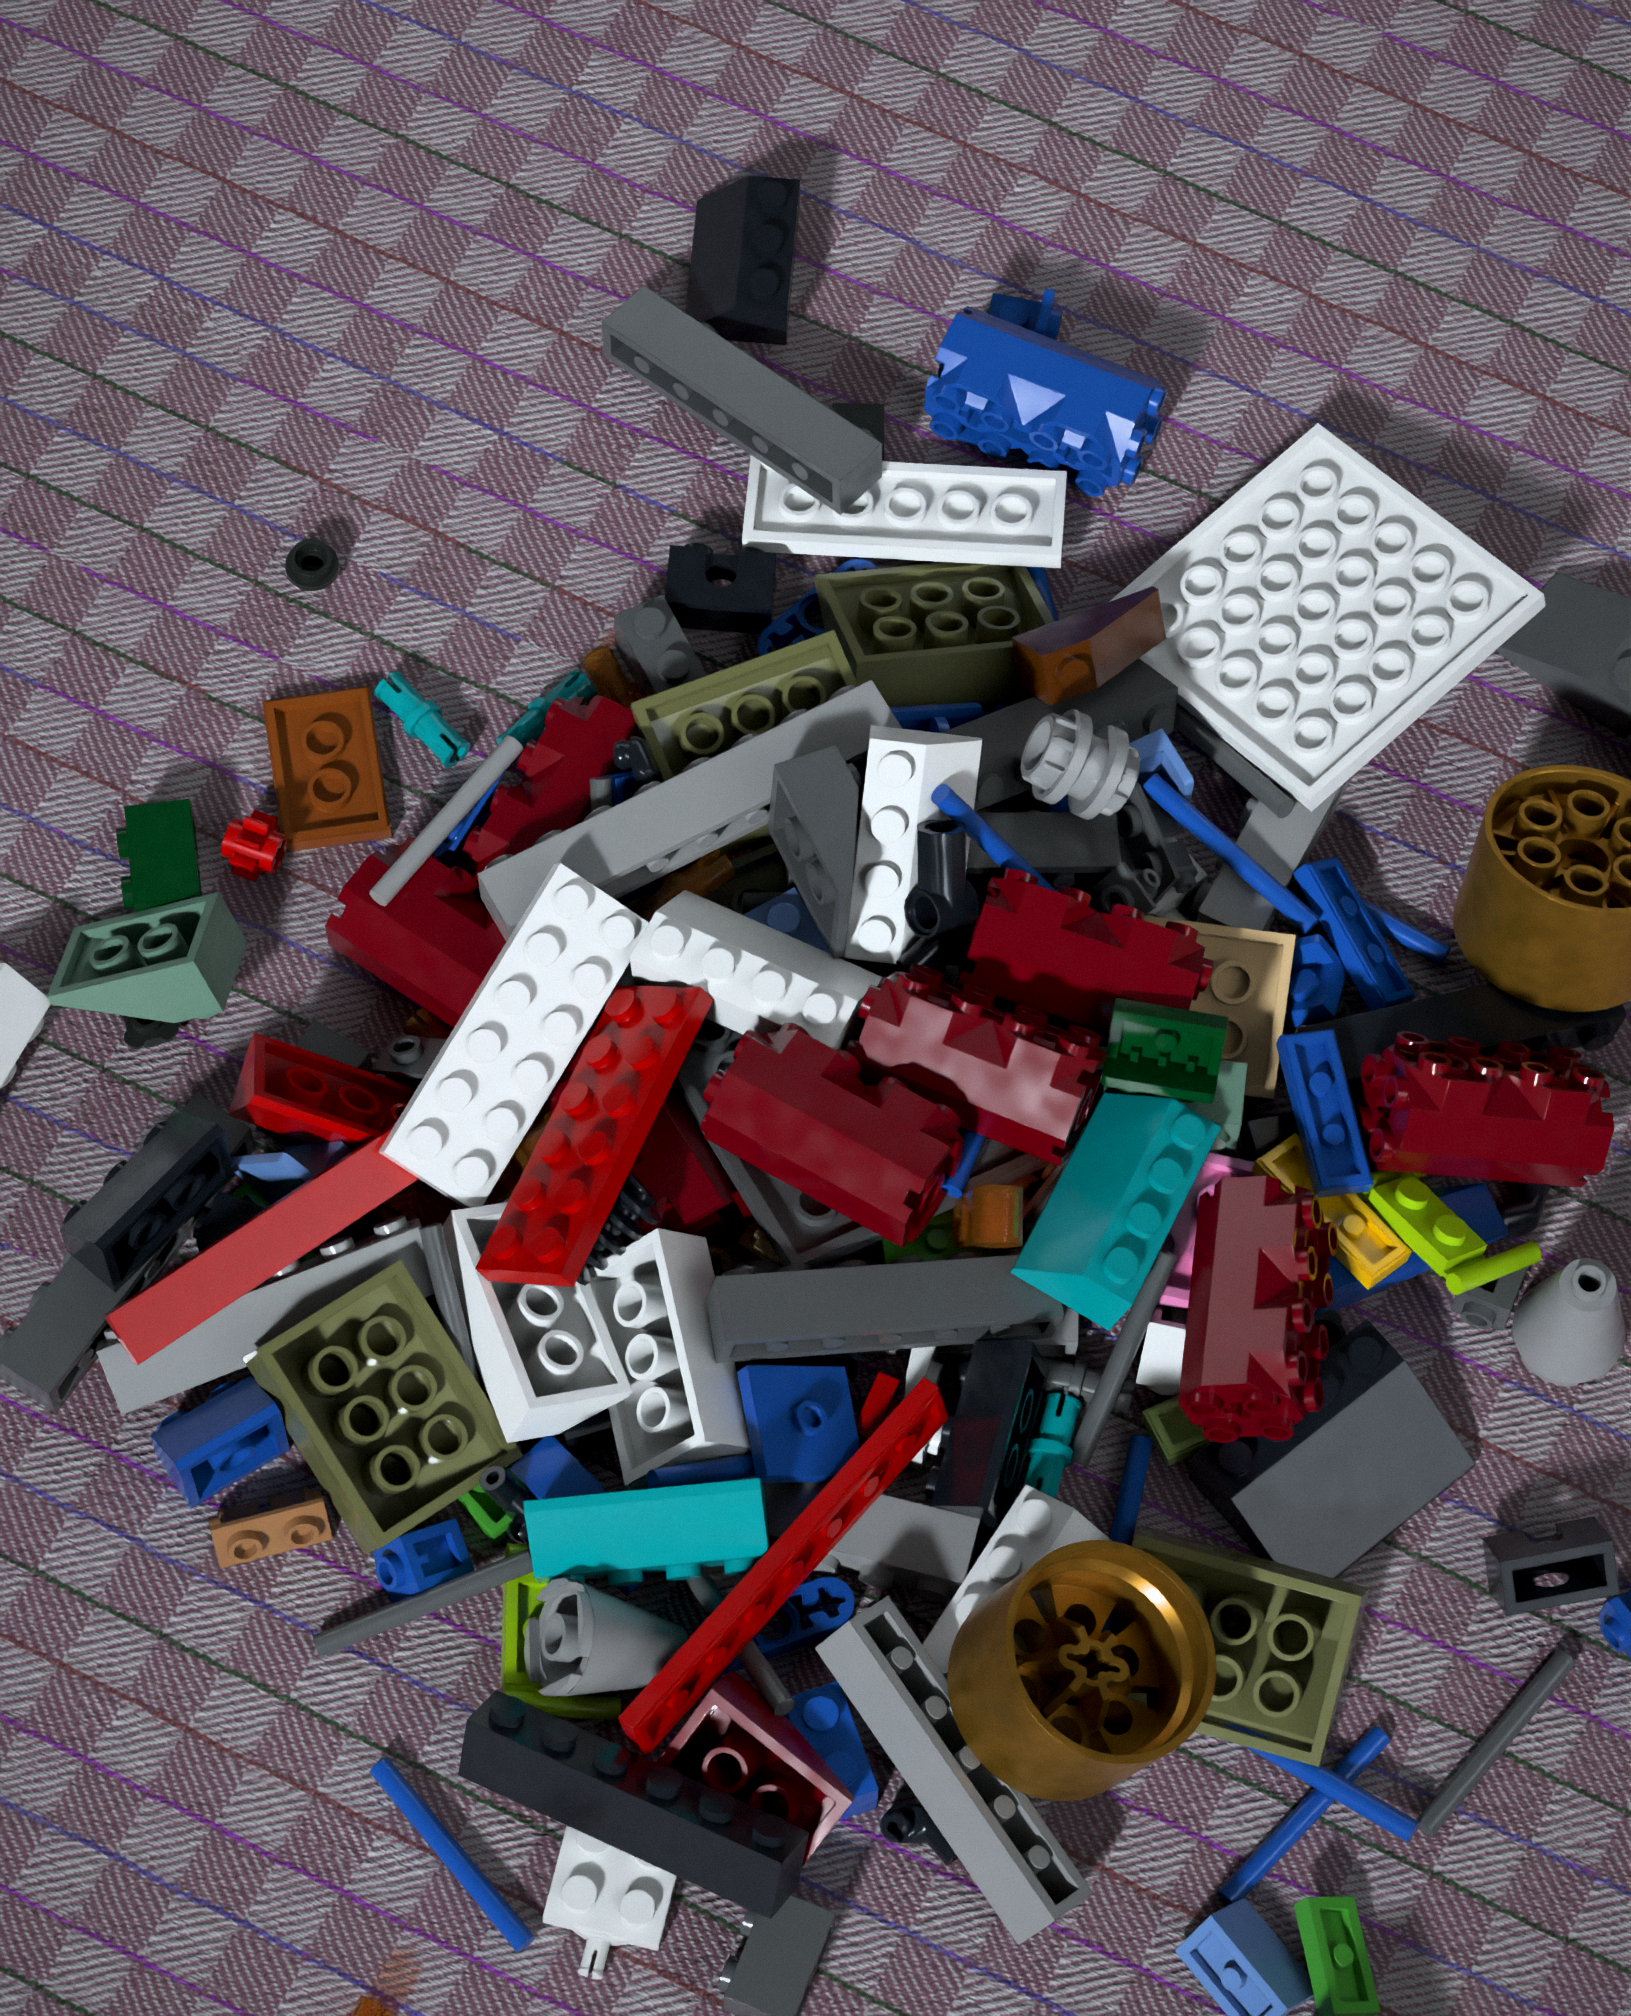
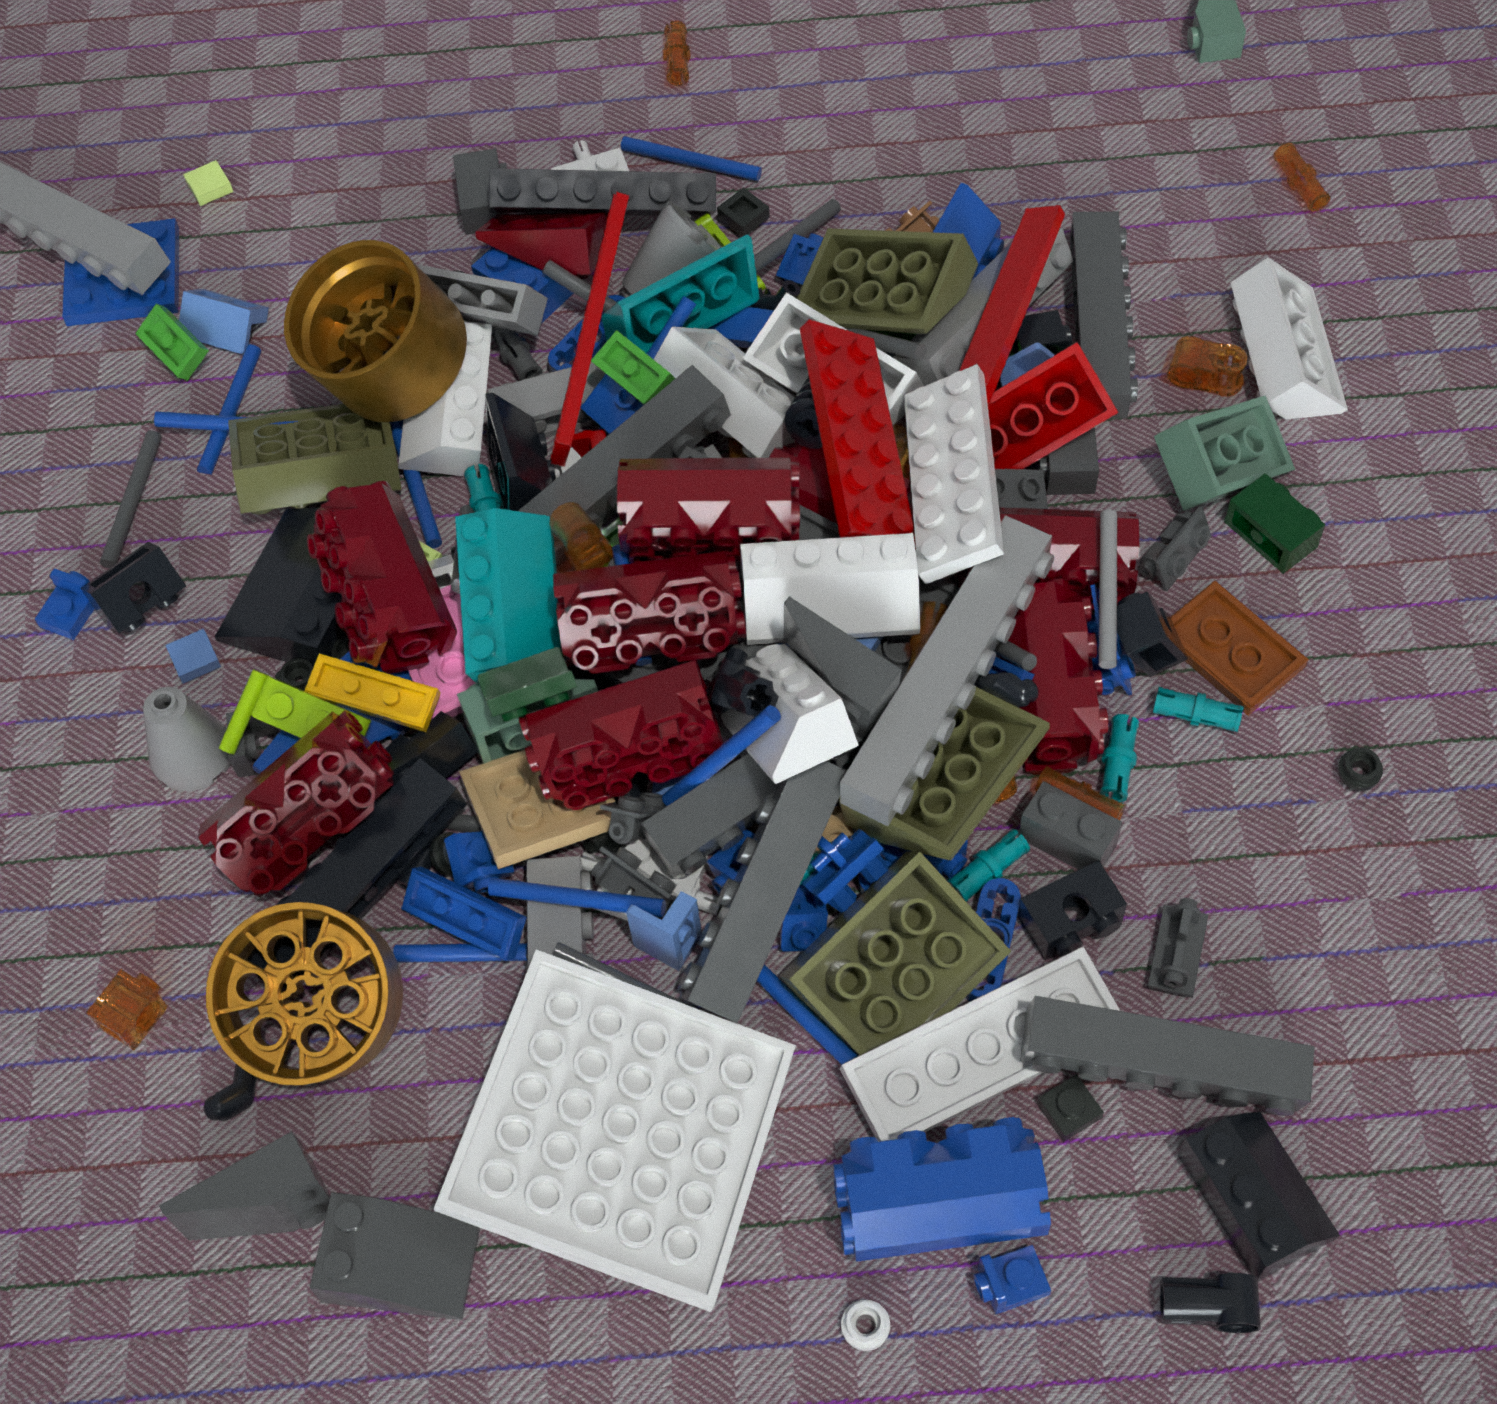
camera: 155 degrees right, 5 degrees down
(68, 1106) = (1202, 364): none -> clear orange piece
(148, 1198) = (1104, 300): black slope -> none
(254, 845) = (1229, 561): red gear -> none
(271, 912) = (1185, 538): none -> dark grey hinge
(422, 786) = (1148, 634): none -> black brick
(446, 1699) = (743, 212): none -> pearl dark grey plate
(643, 503) = (1178, 948): none -> dark grey hinge
(789, 1418) = (632, 368): none -> bright green plate
(847, 198) = (1225, 1301): none -> black piece
(1071, 760) = (700, 853): light grey piece -> none
(1088, 646) = (766, 972): reddish brown slope -> none
(1180, 348) = (869, 1310): none -> white plate
(1324, 1113) = (406, 736): blue tile -> none
(1410, 1333) = (295, 670): none -> pearl dark grey plate
(1512, 1455) = (193, 656): none -> medium blue tile

